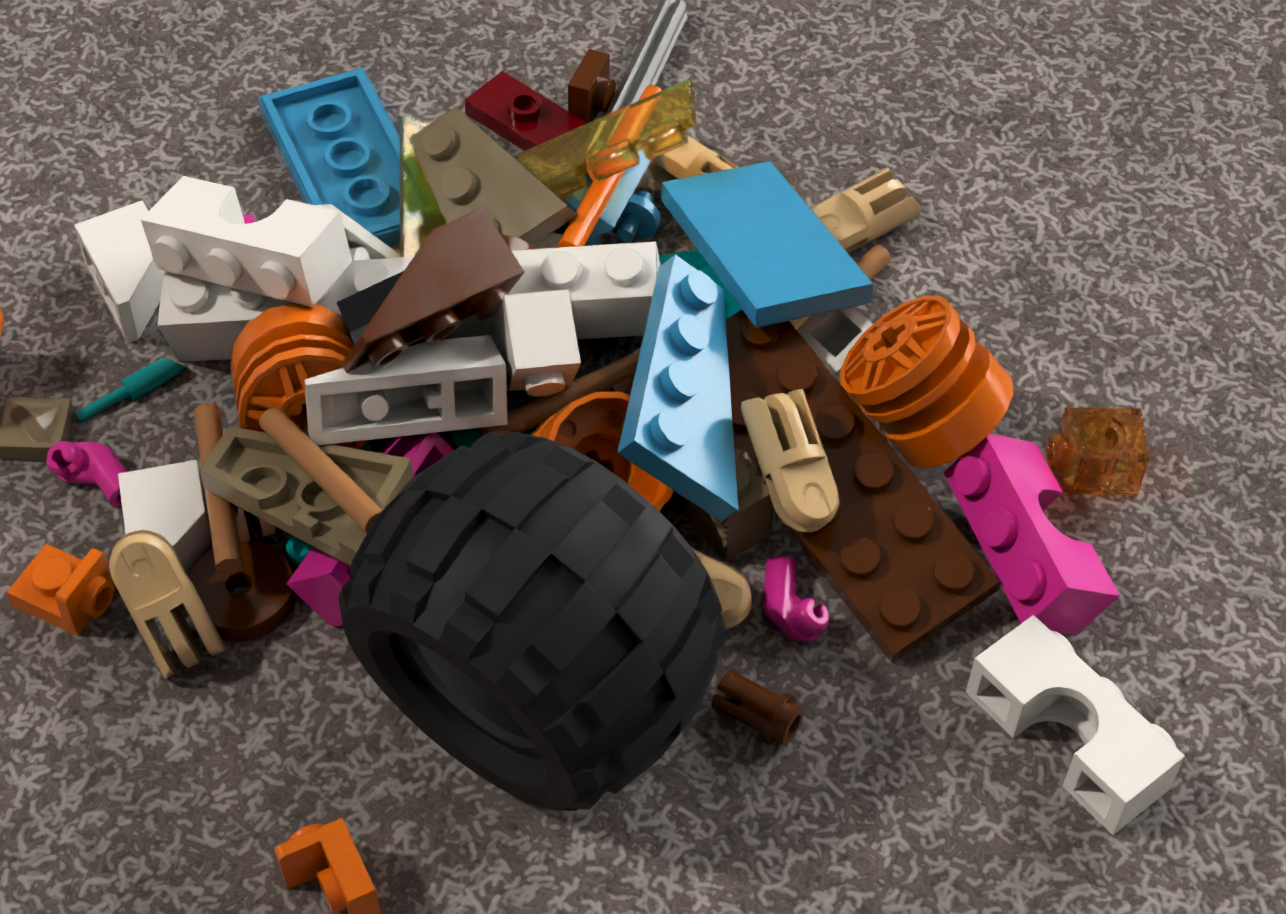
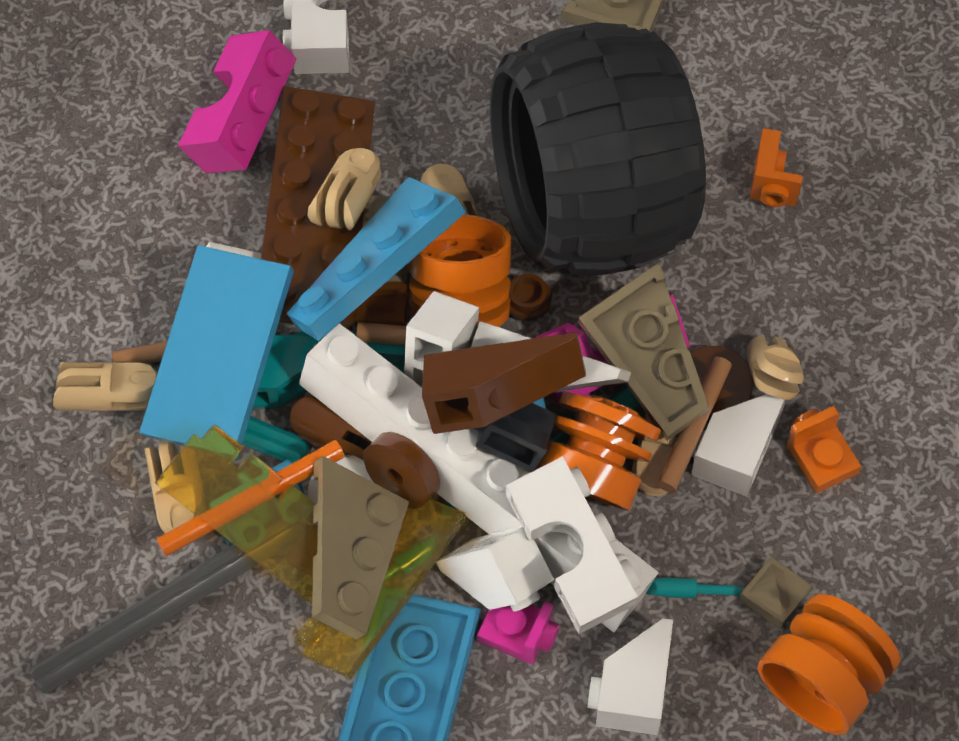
camera: 140 degrees left, 10 degrees up
(88, 465) = (751, 534): dark pink arm -> none
(320, 468) = (640, 336): medium nougat bar -> none
(519, 112) = (244, 647): dark red plate -> none
(591, 87) = (182, 624): reddish brown plate -> none
(759, 708) = (469, 111): reddish brown pin -> none
(784, 608) = (404, 164): dark pink arm -> none
(927, 382) = (197, 172): orange wheel -> none
(1099, 451) = (134, 115): clear orange brick -> none

